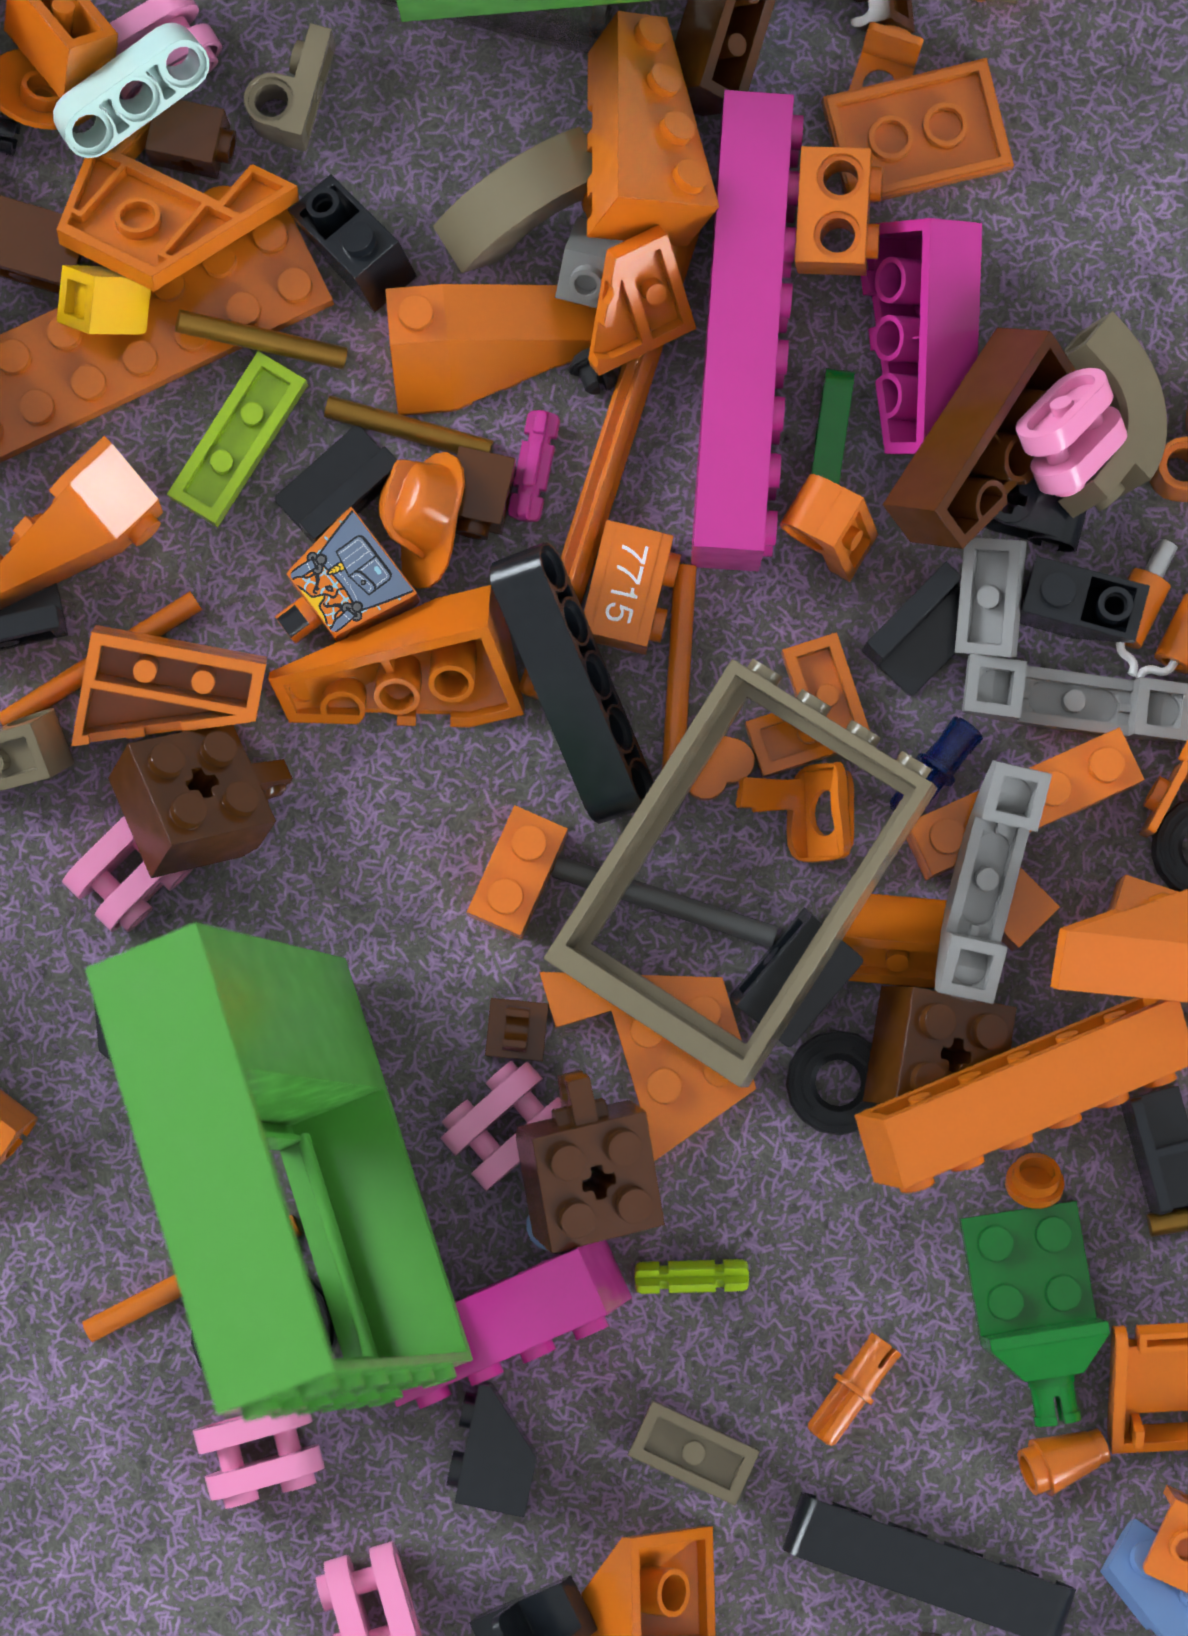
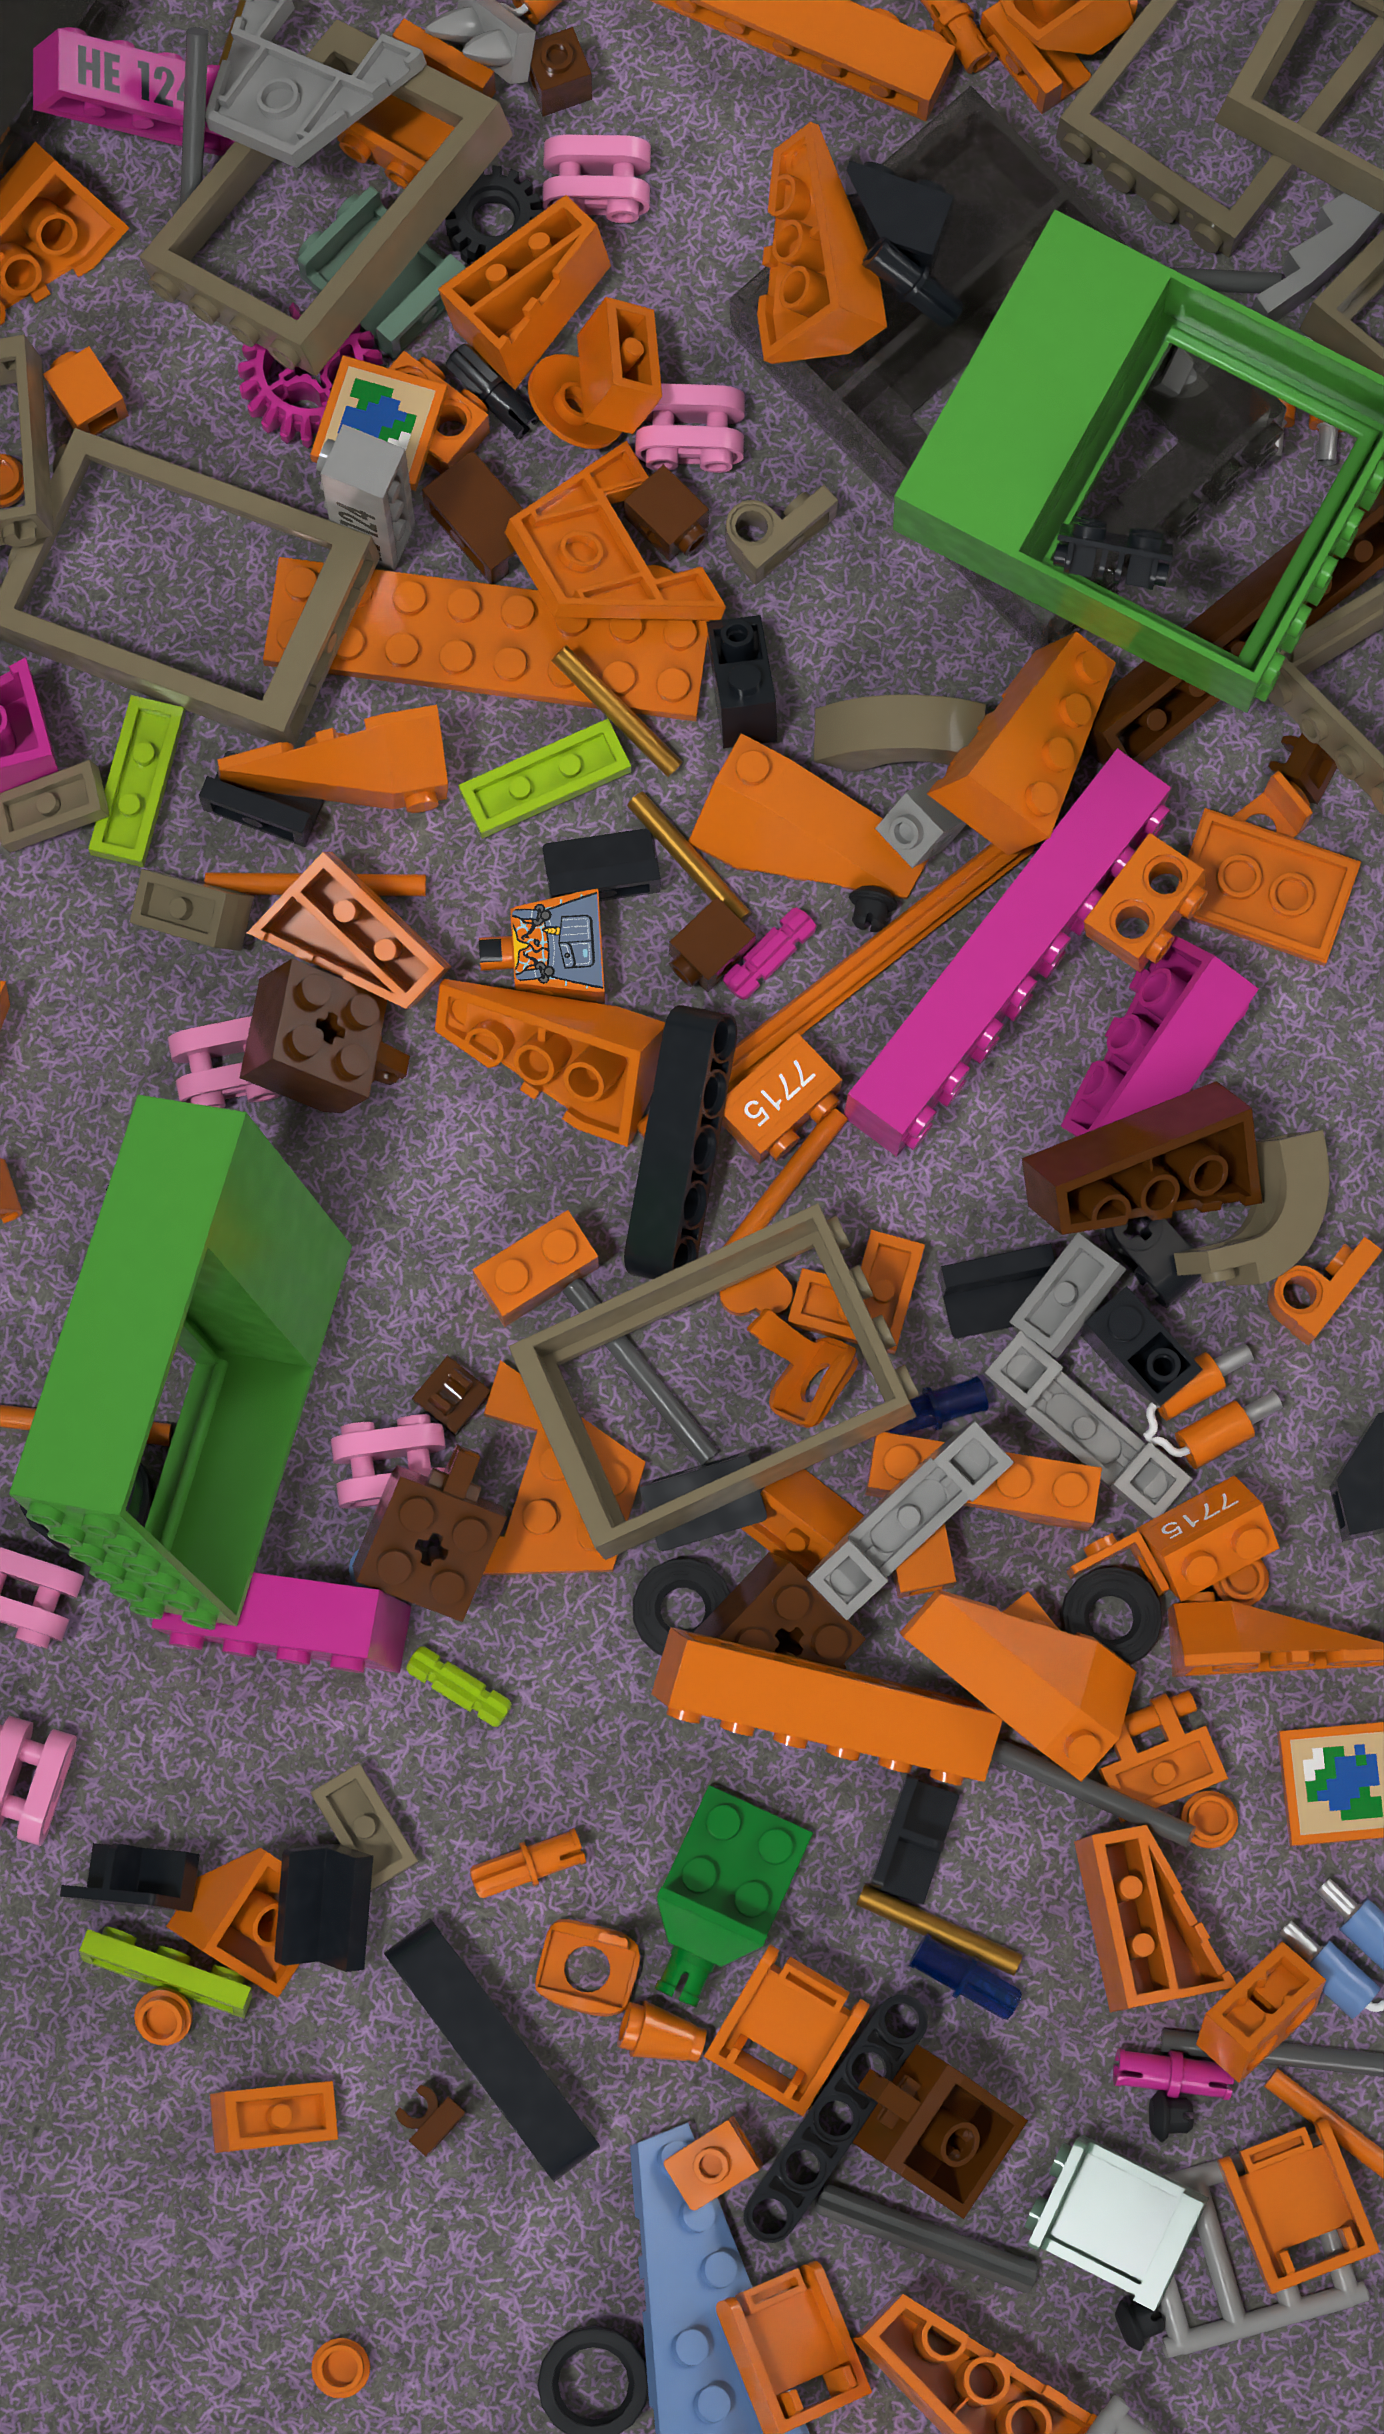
camera: 30 degrees right, 5 degrees down
(101, 301) = (508, 599): yellow panel -> none
(140, 62) = (622, 464): light aqua beam -> none
(421, 514) = (650, 930): orange piece -> none
(497, 1459) = (205, 1723): black slope -> none
(638, 301) = (937, 874): orange wing -> none
(707, 1546) = (324, 1906): none -> black panel
(831, 523) = (976, 1154): orange plate -> none
(832, 424) = (1022, 1087): green beam -> none
(999, 1452) = (622, 1954): none -> orange piece
(1035, 1181) = (789, 1793): orange plate -> none
(1071, 432) = (1216, 1201): bright pink brick -> none

